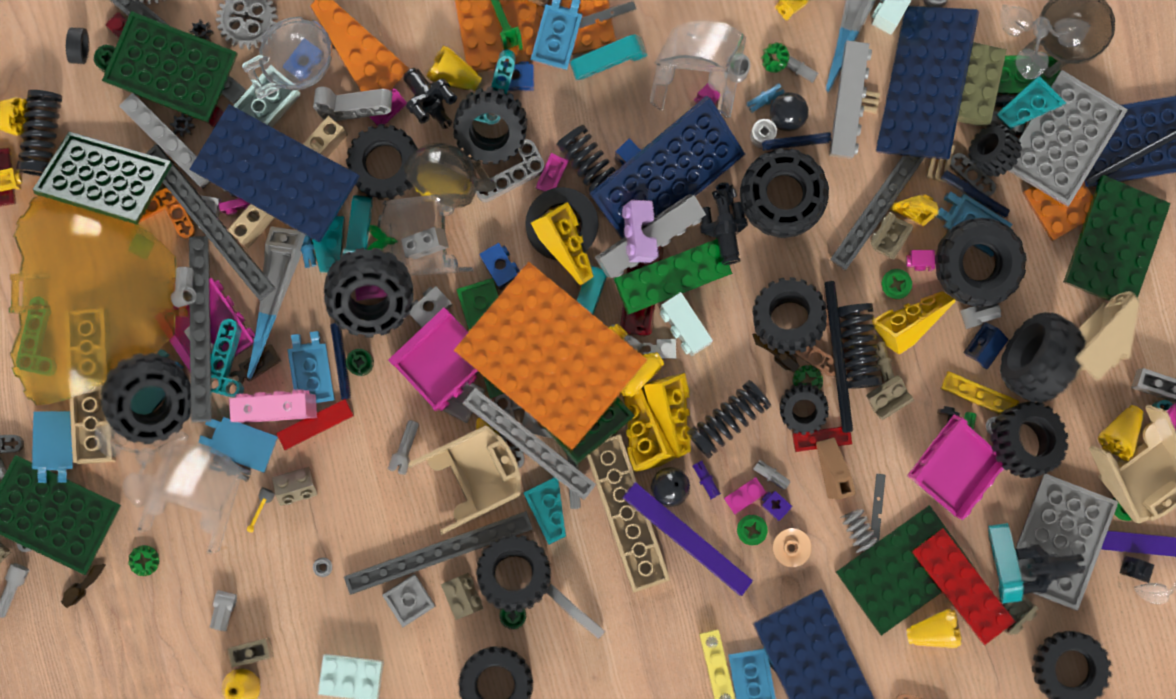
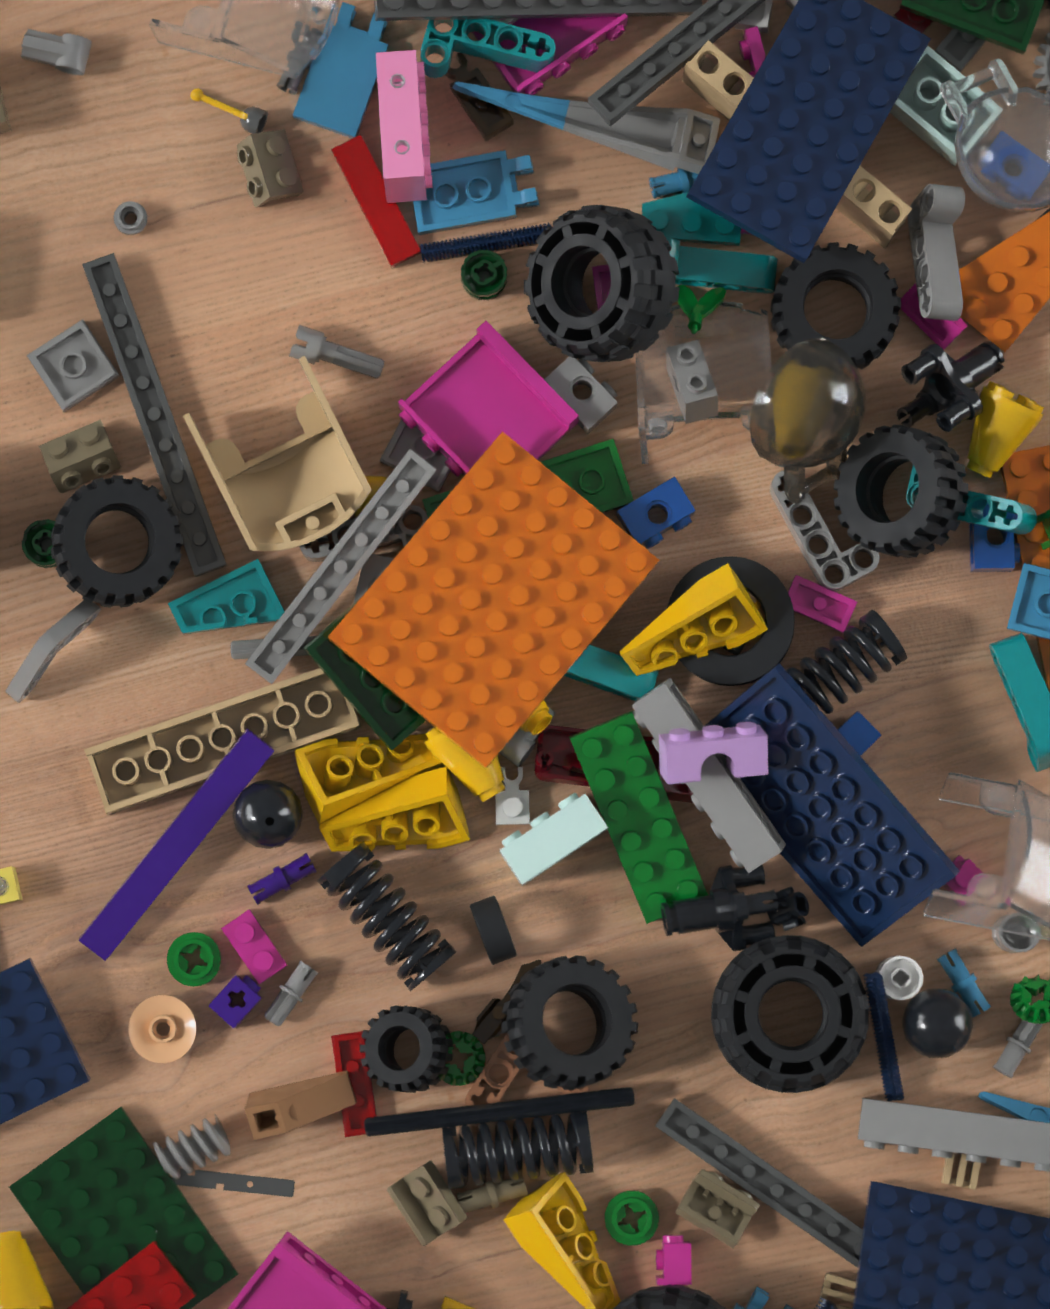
camera: 85 degrees right, 0 degrees up
(736, 359) = (493, 930): none -> black tyre
(917, 208) = (767, 1254): yellow wedge -> none

